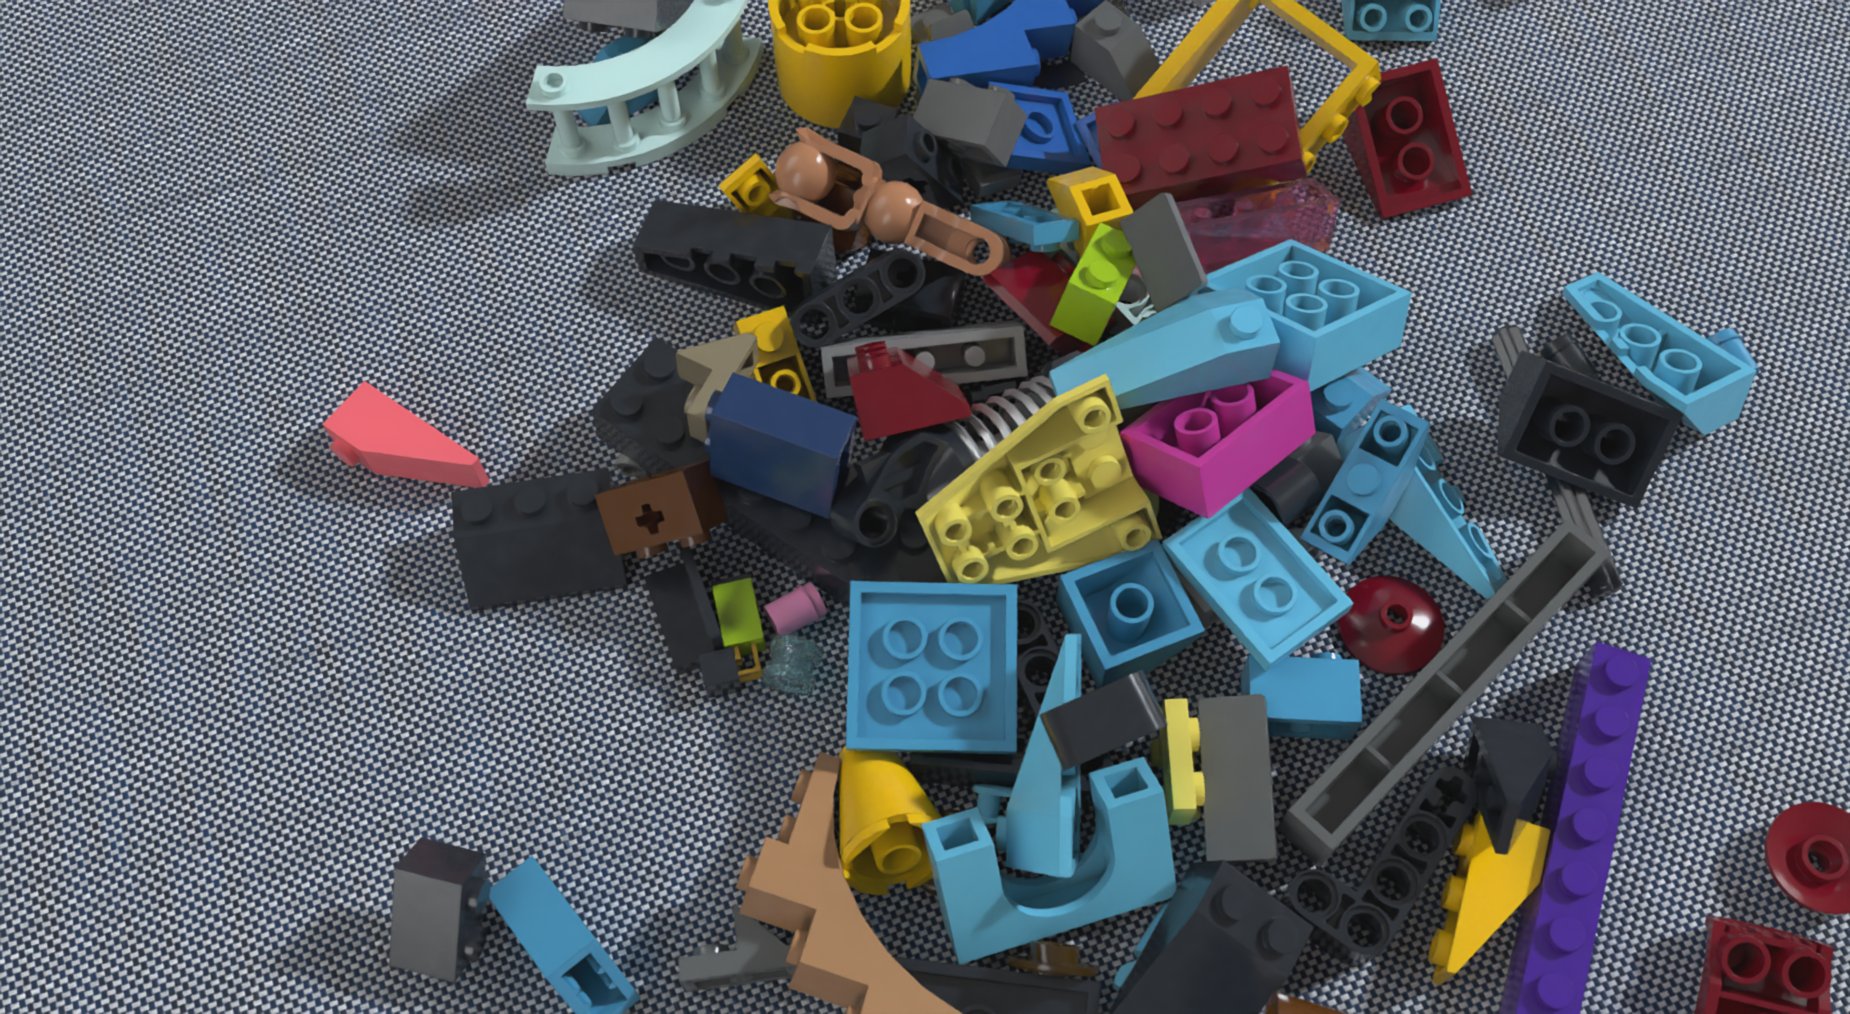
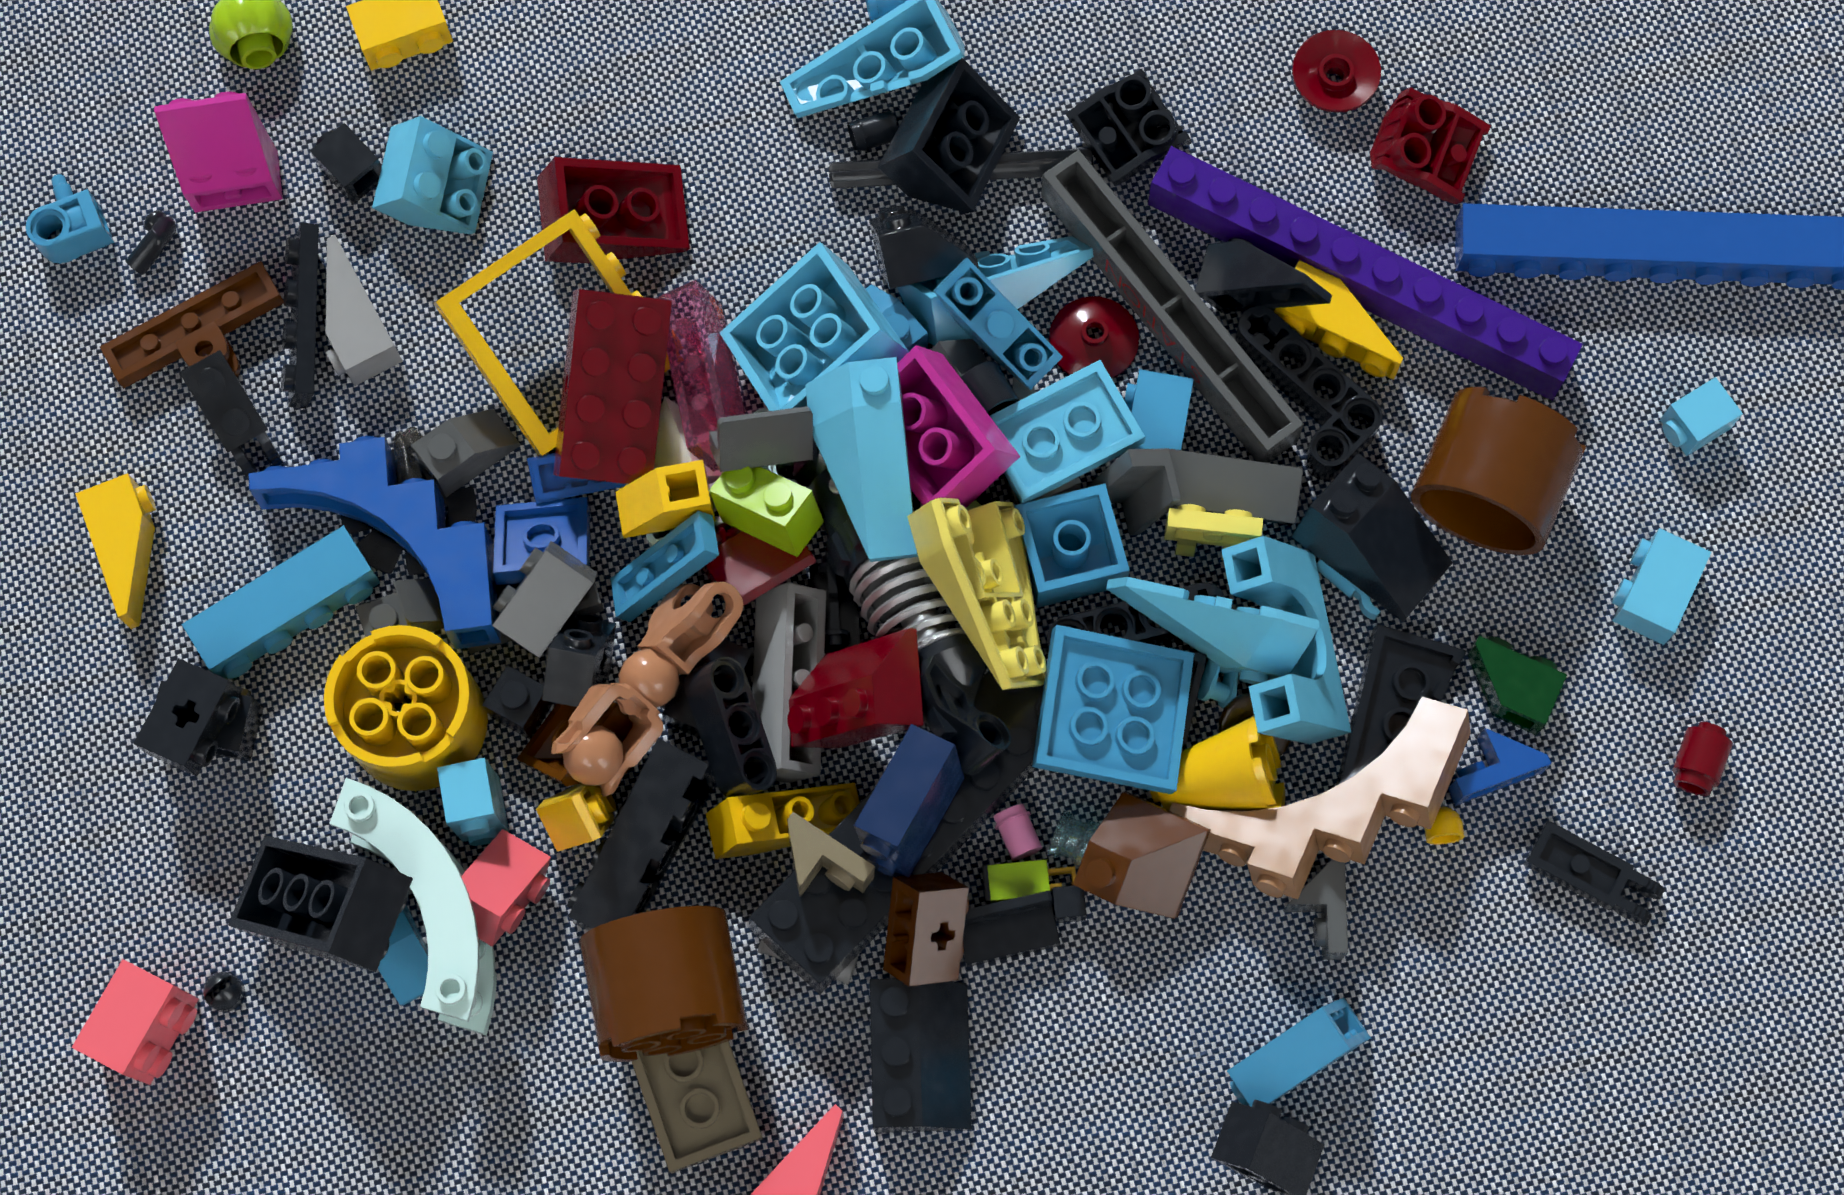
camera: 80 degrees left, 10 degrees up
(523, 331) = (697, 1104): none -> dark tan plate
(577, 264) = (663, 983): none -> reddish brown brick
(678, 140) = (504, 883): none -> coral brick
(760, 106) = (473, 801): none -> medium azure brick
(770, 729) = (1142, 857): none -> reddish brown slope
(1053, 960) = (1359, 657): dark brown piece -> none
(1103, 720) = (1203, 559): black beam -> none
(1222, 668) = (1143, 485): none -> dark grey panel
(1447, 395) = (914, 247): none -> black slope
(1666, 612) = (1123, 128): none -> black slope

